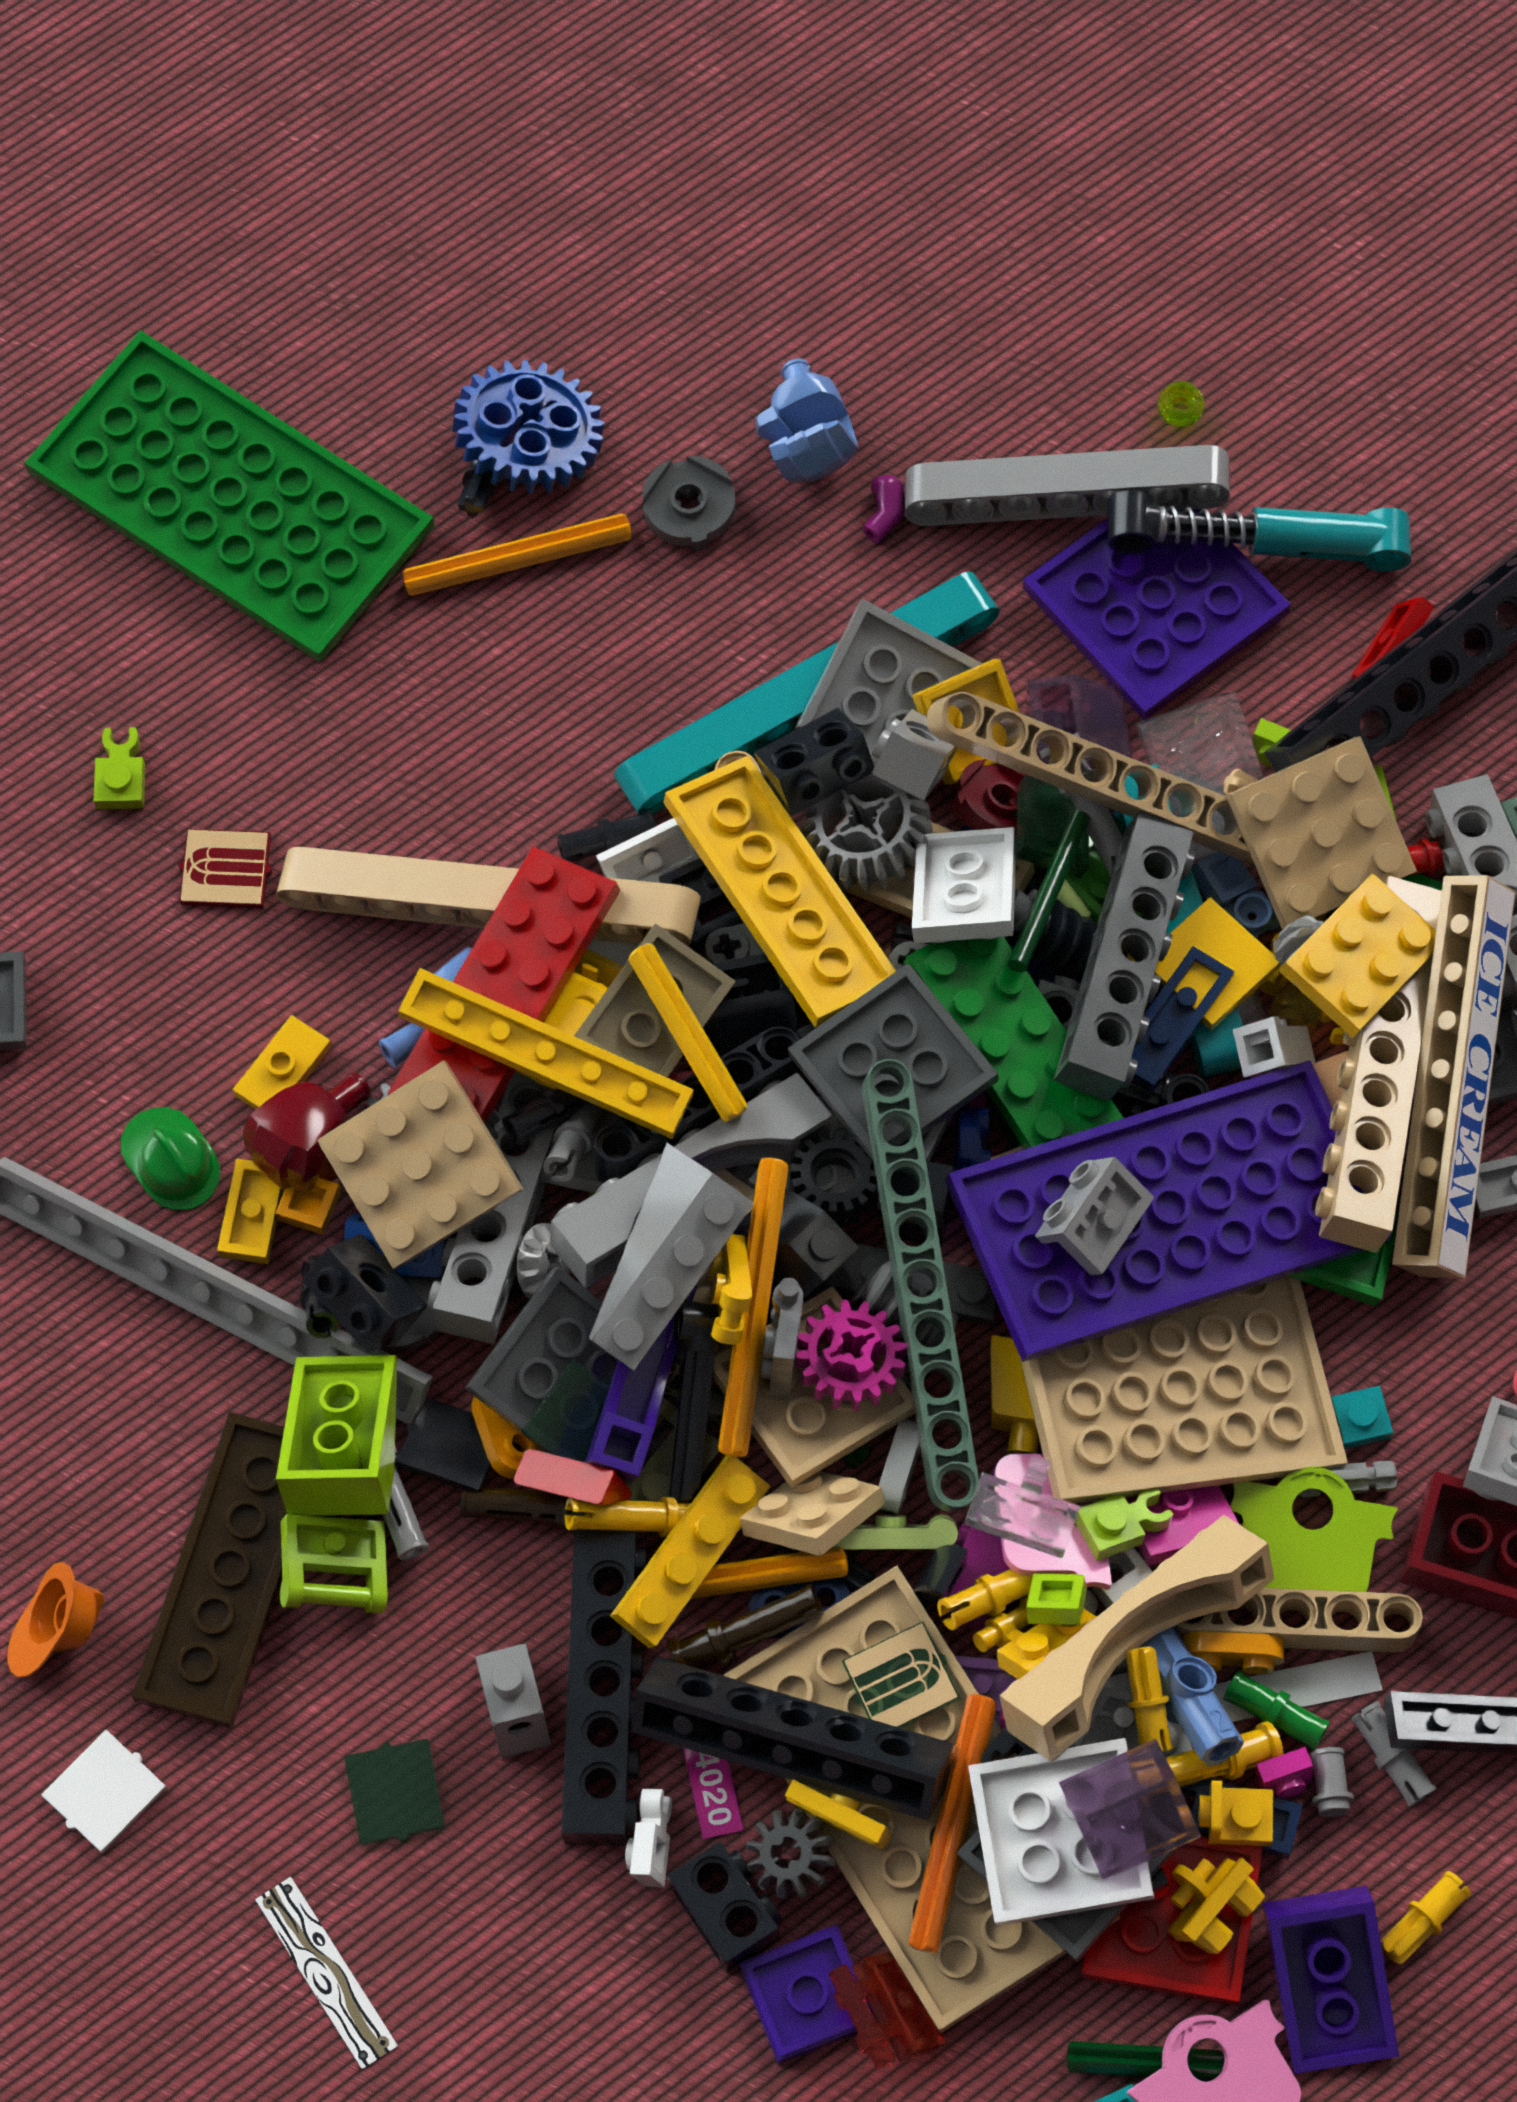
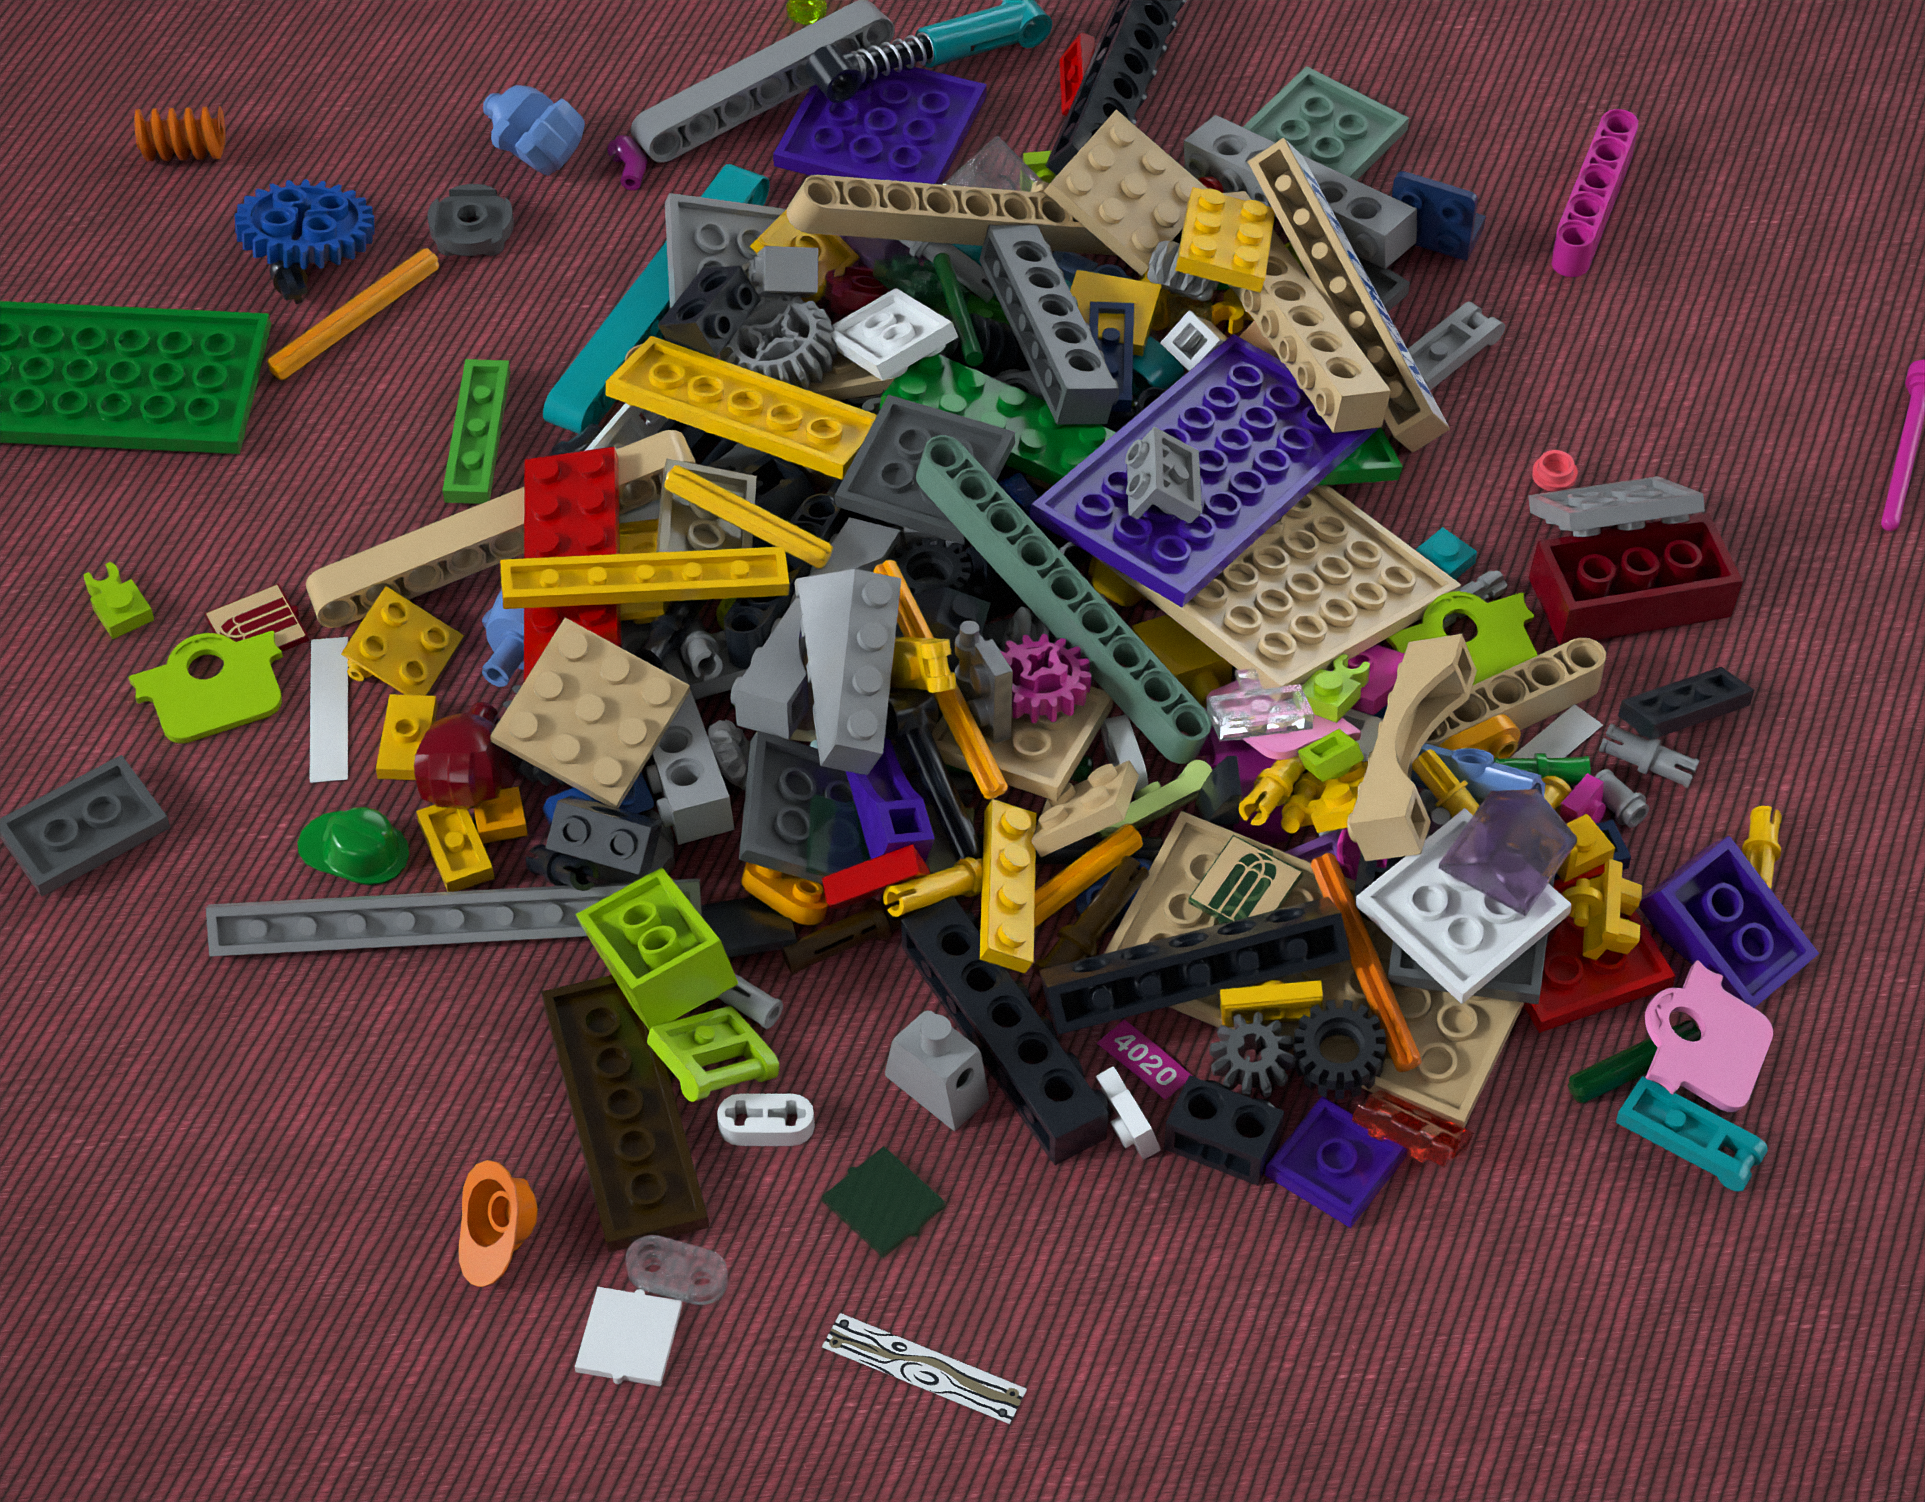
camera: 35 degrees left, 15 degrees down
(144, 936) = (204, 707): none -> lime piece
(177, 1758) = (680, 1268): none -> clear plate
(236, 995) = (328, 710): none -> white sticker
(332, 967) = (400, 645): none -> yellow hinge
(337, 1661) = (765, 1119): none -> white beam
(475, 255) = (180, 134): none -> orange piece
(544, 759) = (476, 431): none -> bright green plate
(847, 1872) = (1343, 1022): none -> black tyre

